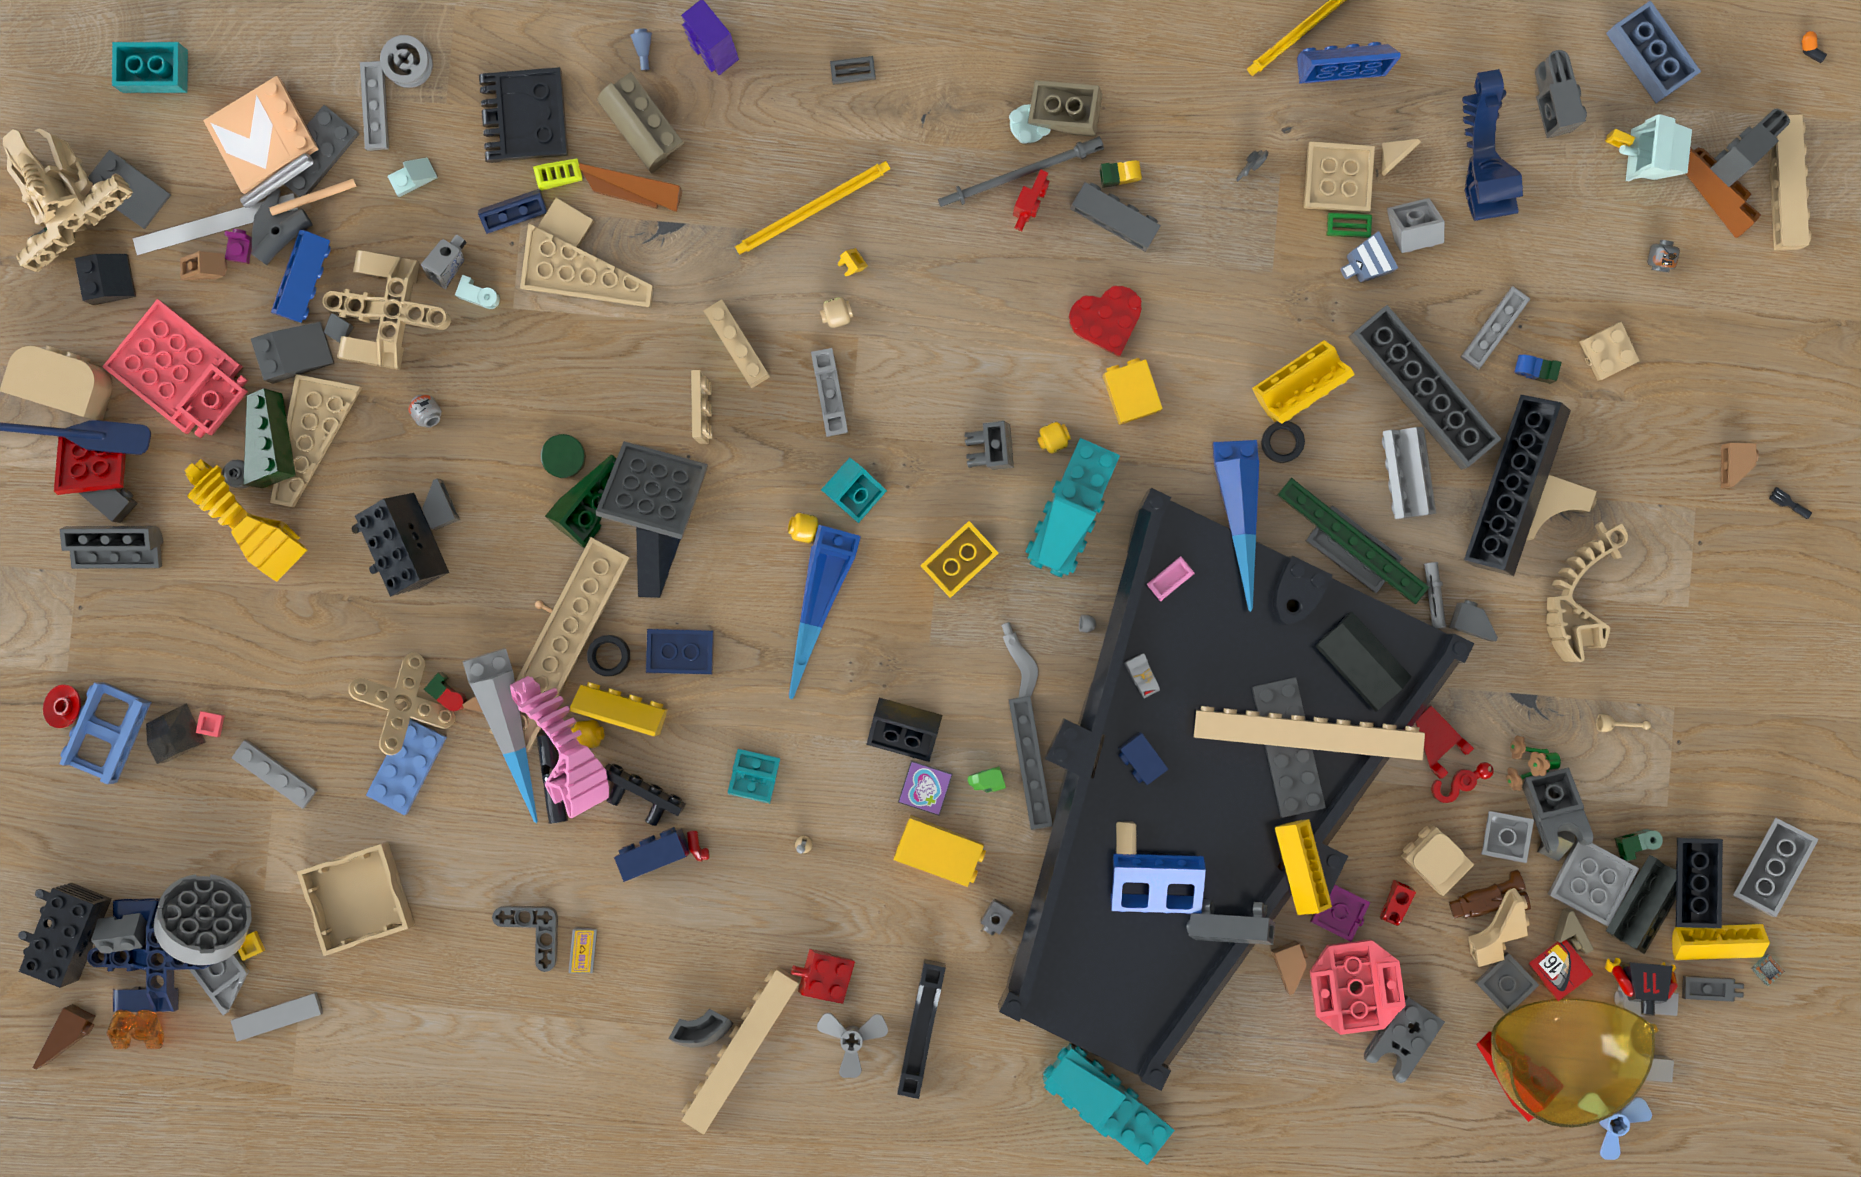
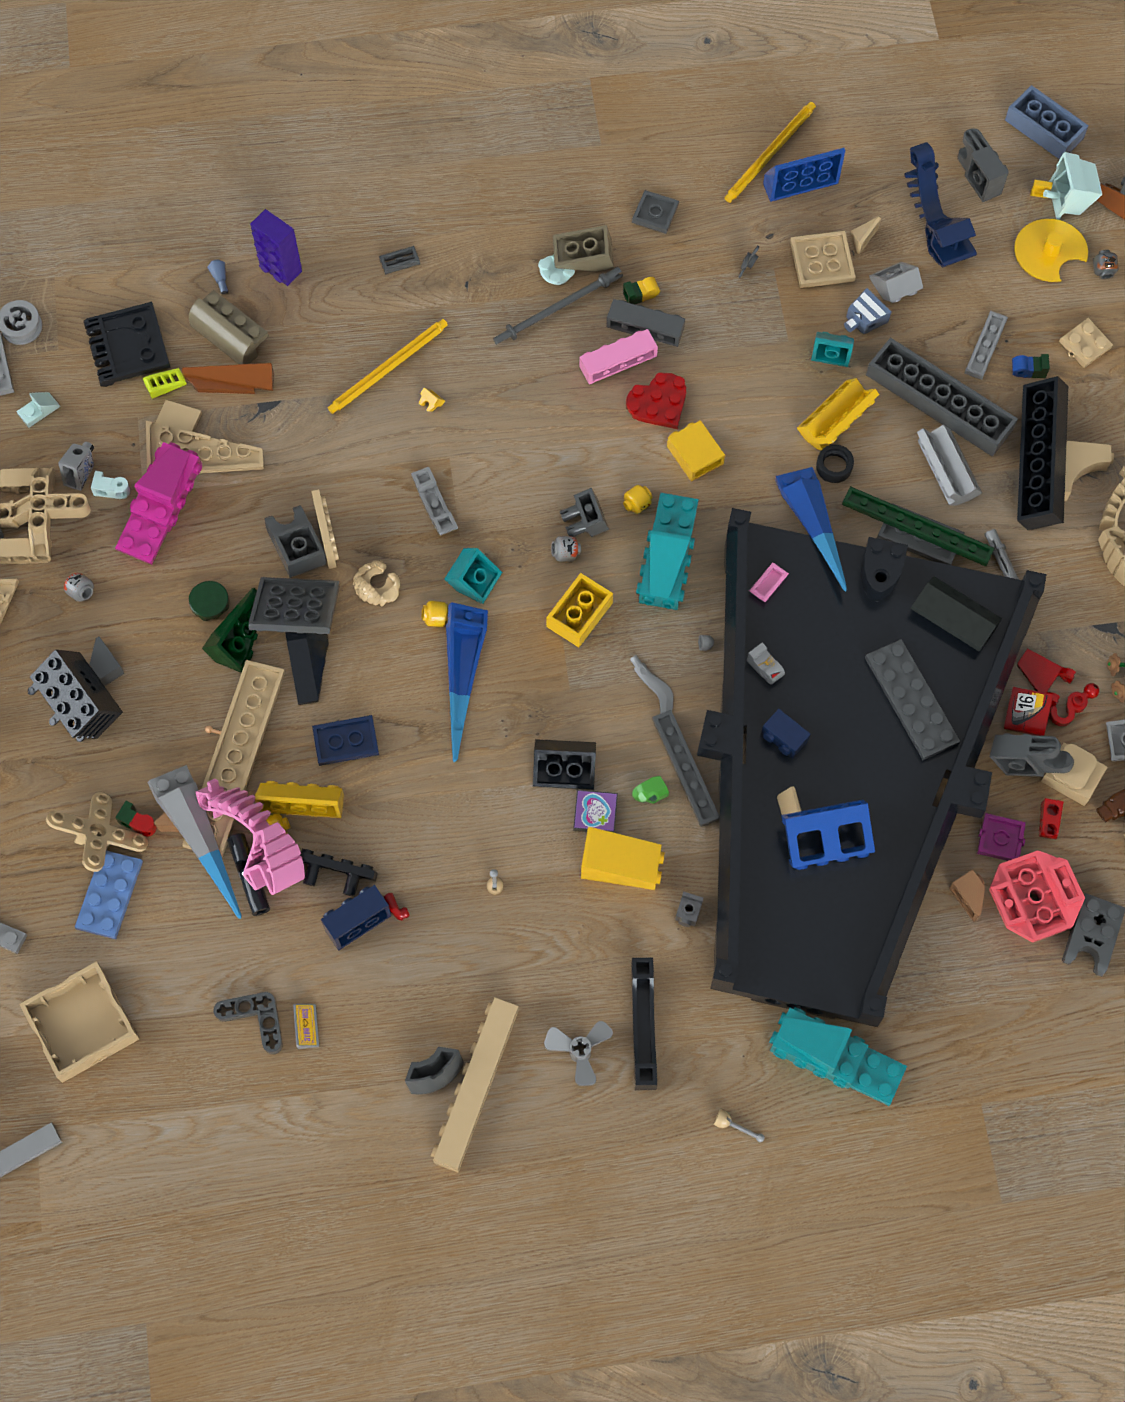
camera: 15 degrees left, 20 degrees down
(512, 211) = (130, 419): dark blue slope -> none
(527, 328) = (159, 500): none -> dark pink wedge
(591, 655) = (276, 743): black tyre -> none
(667, 403) = (296, 543): none -> dark grey brick
(736, 343) = (345, 479): tan brick -> none
(736, 485) = (372, 595): none -> tan piece
(753, 776) = (435, 834): teal slope -> none
(824, 976) = (541, 998): red plate -> none
(836, 312) = (426, 438): tan head -> none
(961, 481) = (565, 548): none -> light grey head
(978, 1139) = (724, 1120): none -> hinge
(1028, 200) = (570, 319): red plate -> none
(1073, 255) = (618, 356): none -> bright pink brick
(1161, 71) = (655, 211): none -> dark grey plate
(1232, 928) = (906, 854): dark grey brick -> none
(1303, 867) = (954, 787): yellow brick -> none
(1309, 734) = (926, 676): tan brick -> none
(1319, 297) = (832, 349): none -> teal slope
(1340, 233) = (841, 296): green tile -> none
(1394, 839) = (1030, 755): none -> dark grey brick
(1410, 782) = (1028, 711): none -> slope
(1472, 621) = (1042, 564): dark grey slope -> none
(1604, 214) = (1046, 245): none -> yellow piece

